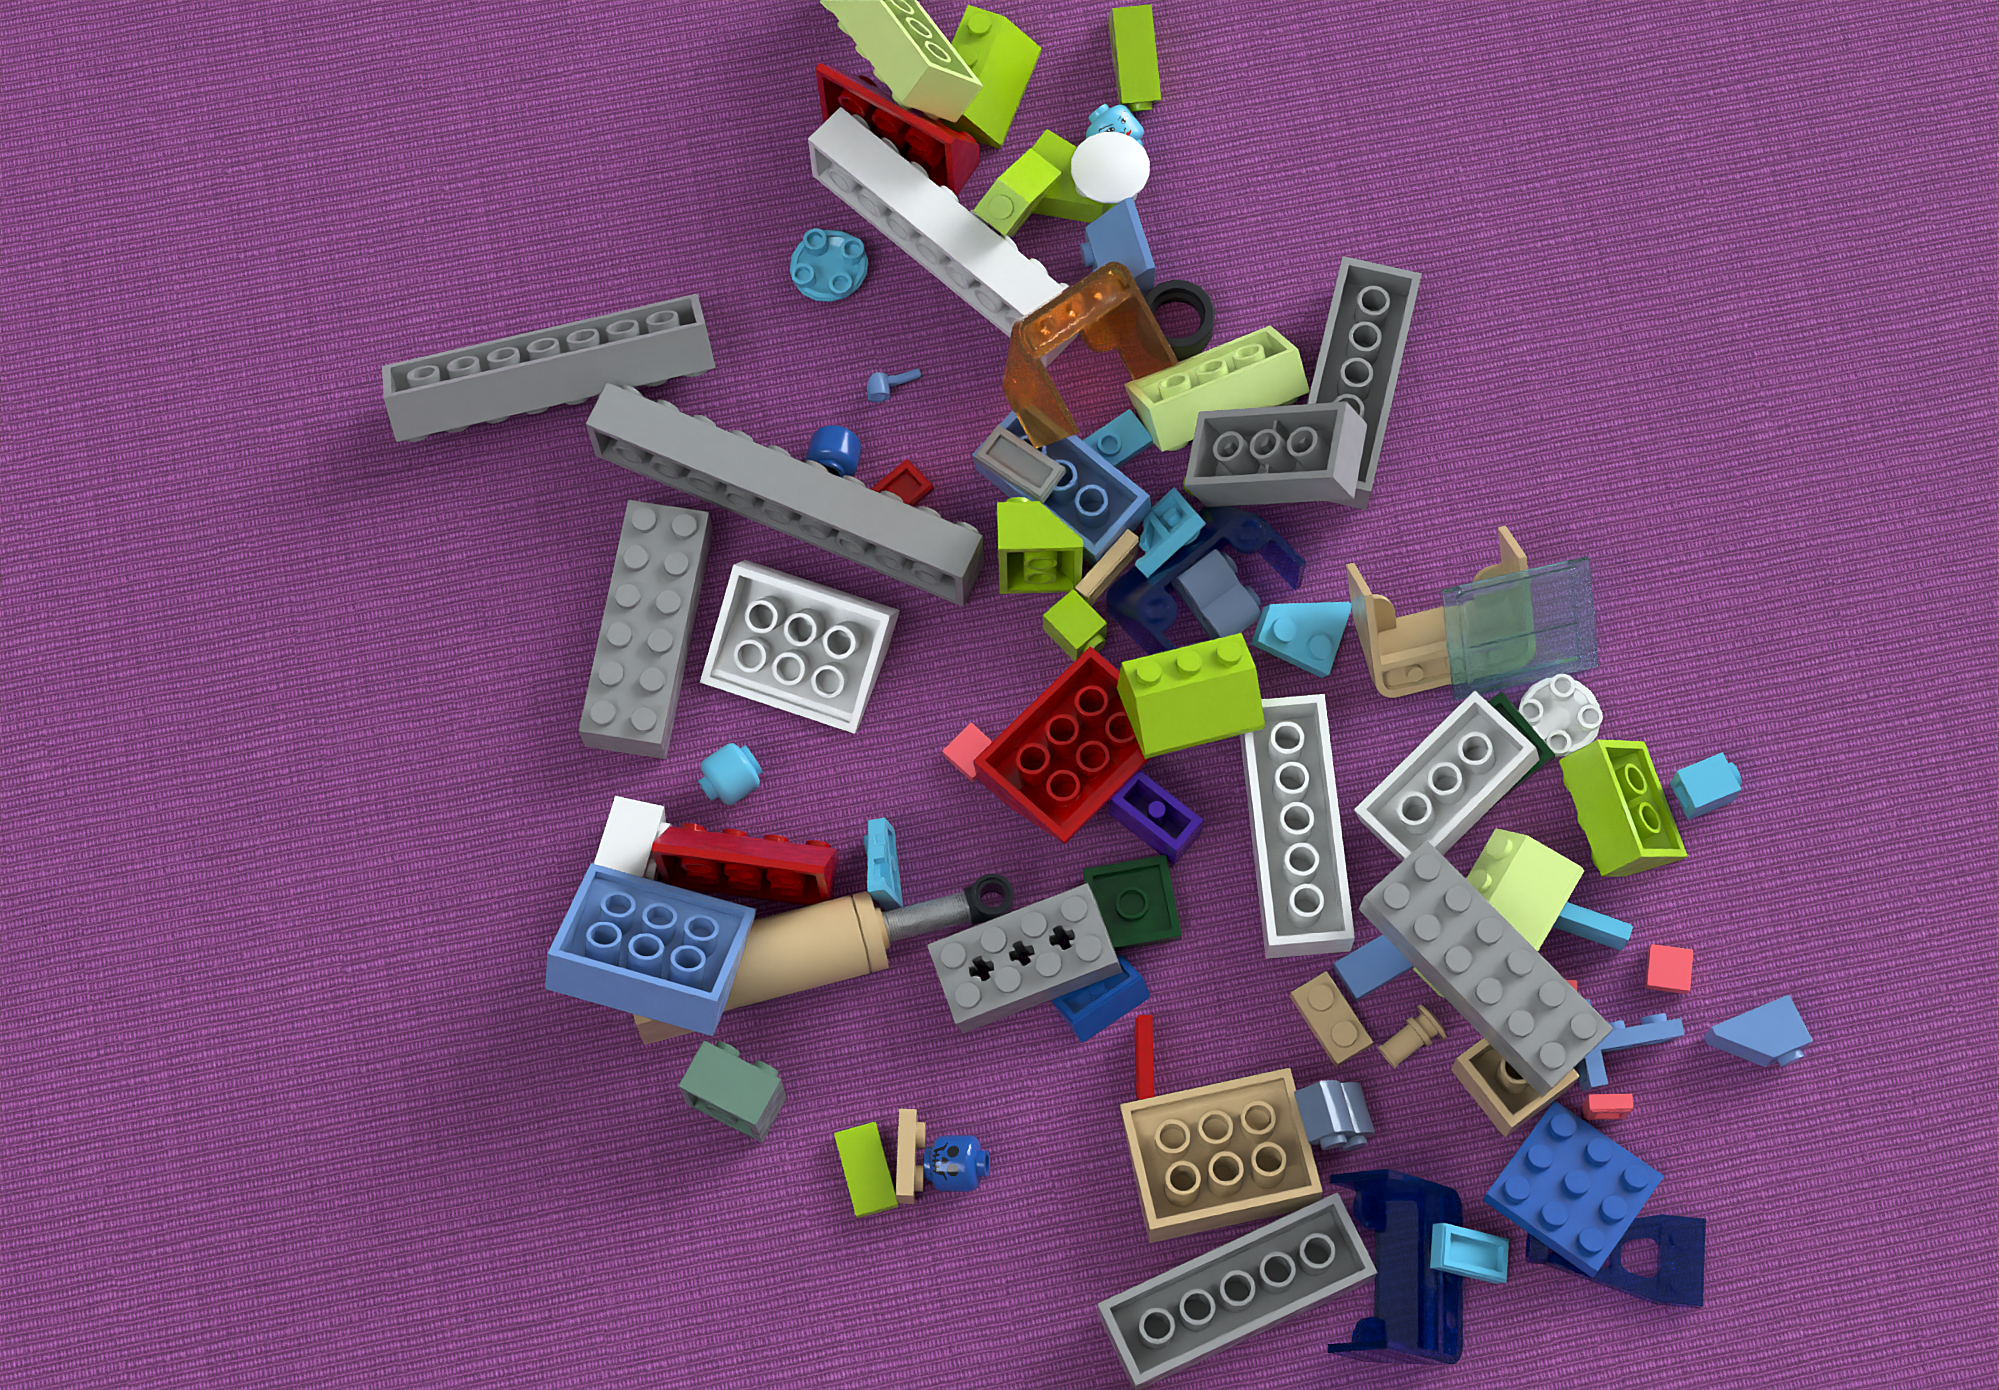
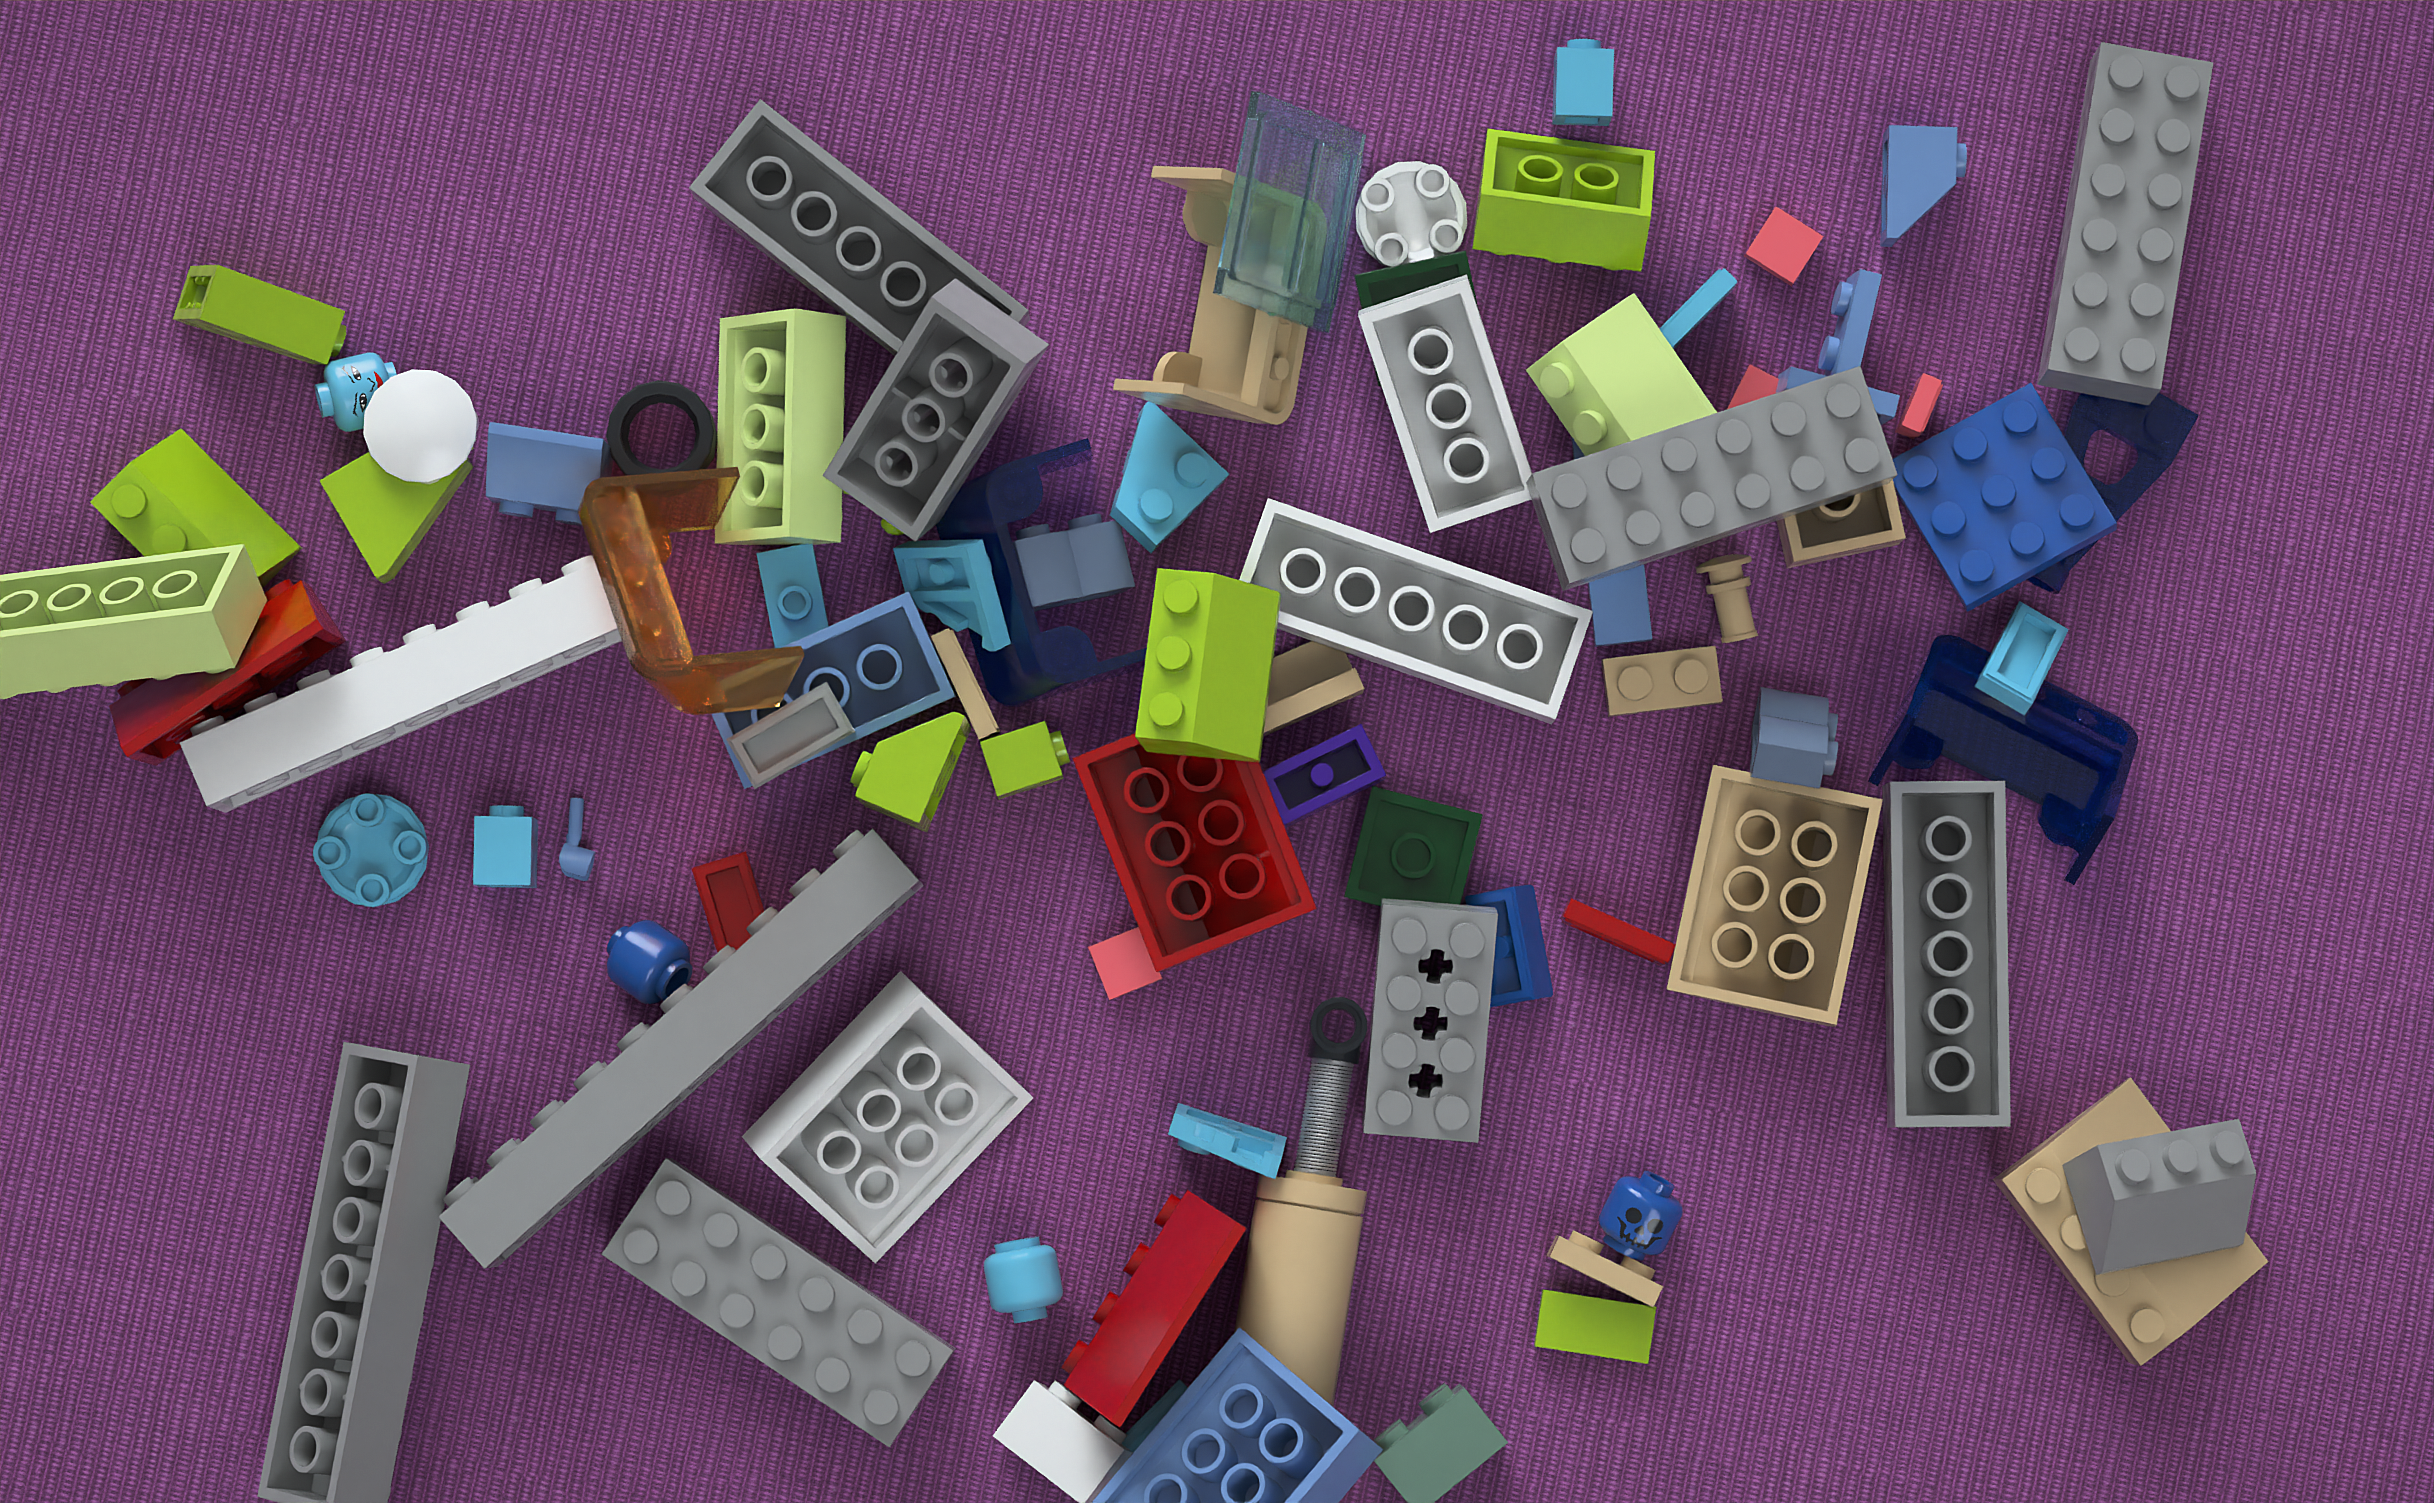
camera: 70 degrees left, 15 degrees up
(865, 340) = (505, 848): none -> medium azure brick
(1017, 193) = (414, 569): lime slope -> none
(1208, 782) = (1308, 683): none -> tan panel
(1808, 1187) = (2125, 224): none -> light grey brick

